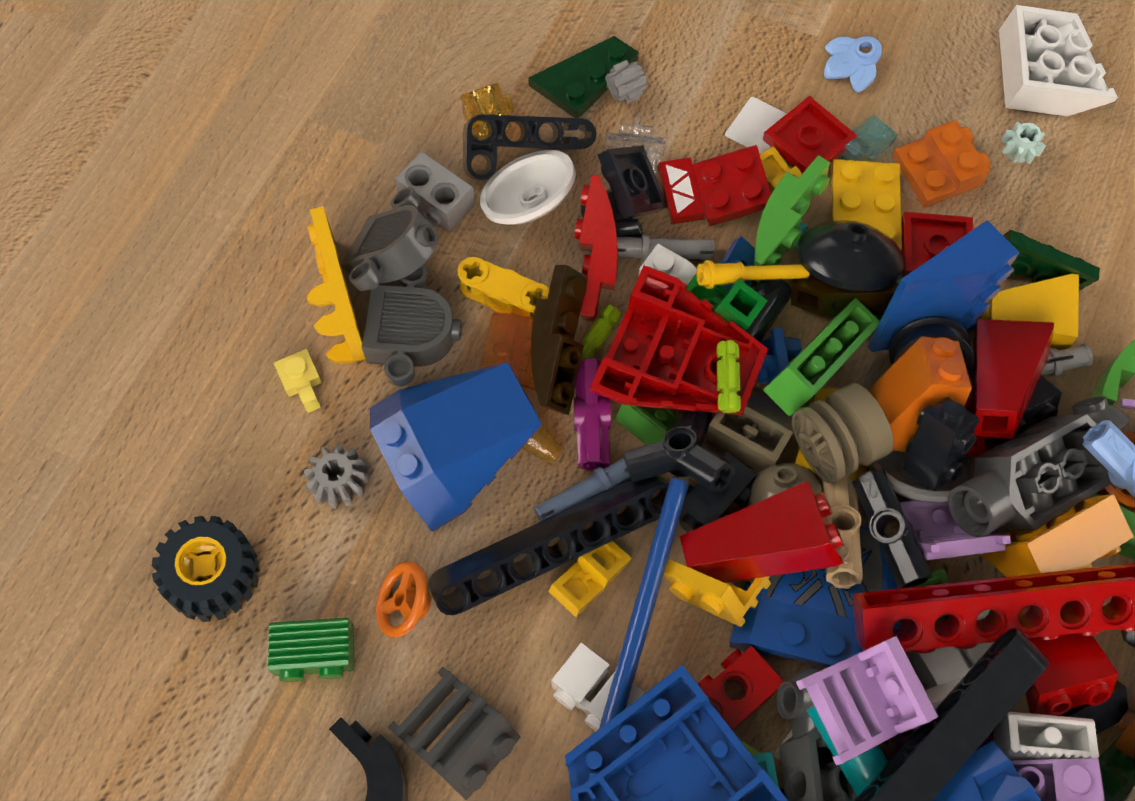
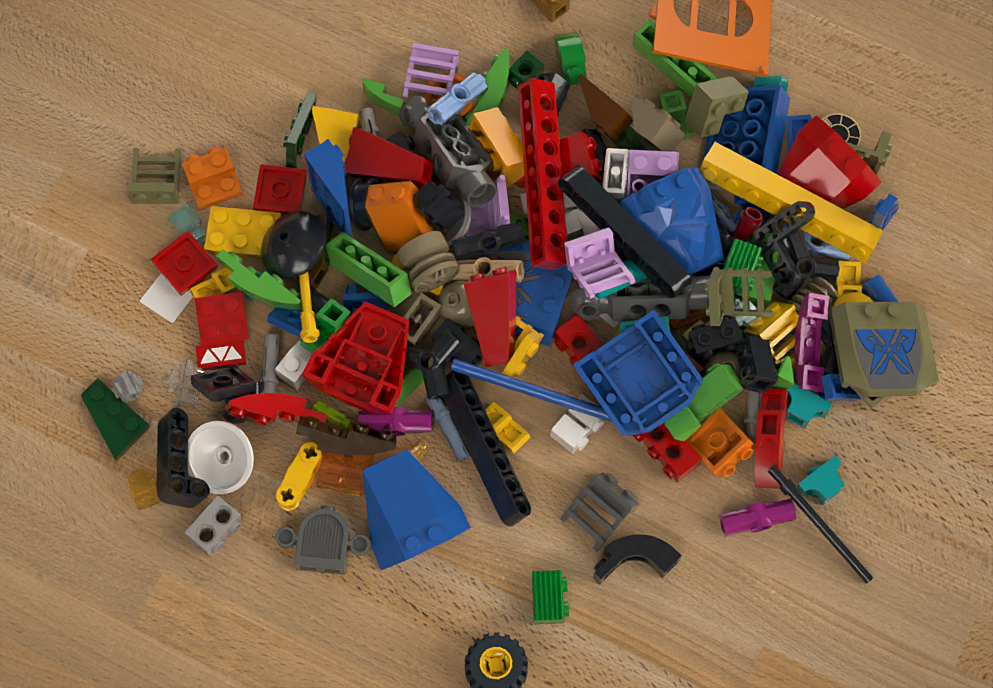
camera: 90 degrees left, 5 degrees up
(299, 377) = (355, 619): light yellow plate -> none
(327, 467) = (440, 593): light grey gear -> none
(333, 292) = (308, 584): yellow hinge -> none
(391, 244) = (265, 549): dark grey piece -> none
(410, 598) = (520, 534): orange piece -> none
(728, 376) = (387, 326): lime axle -> none
(850, 62) = (119, 229): light blue plate -> none
(909, 98) = (154, 192): none -> olive plate
(1023, 142) = (196, 117): light aqua gear -> none
(1050, 63) = (136, 94): white wedge -> none

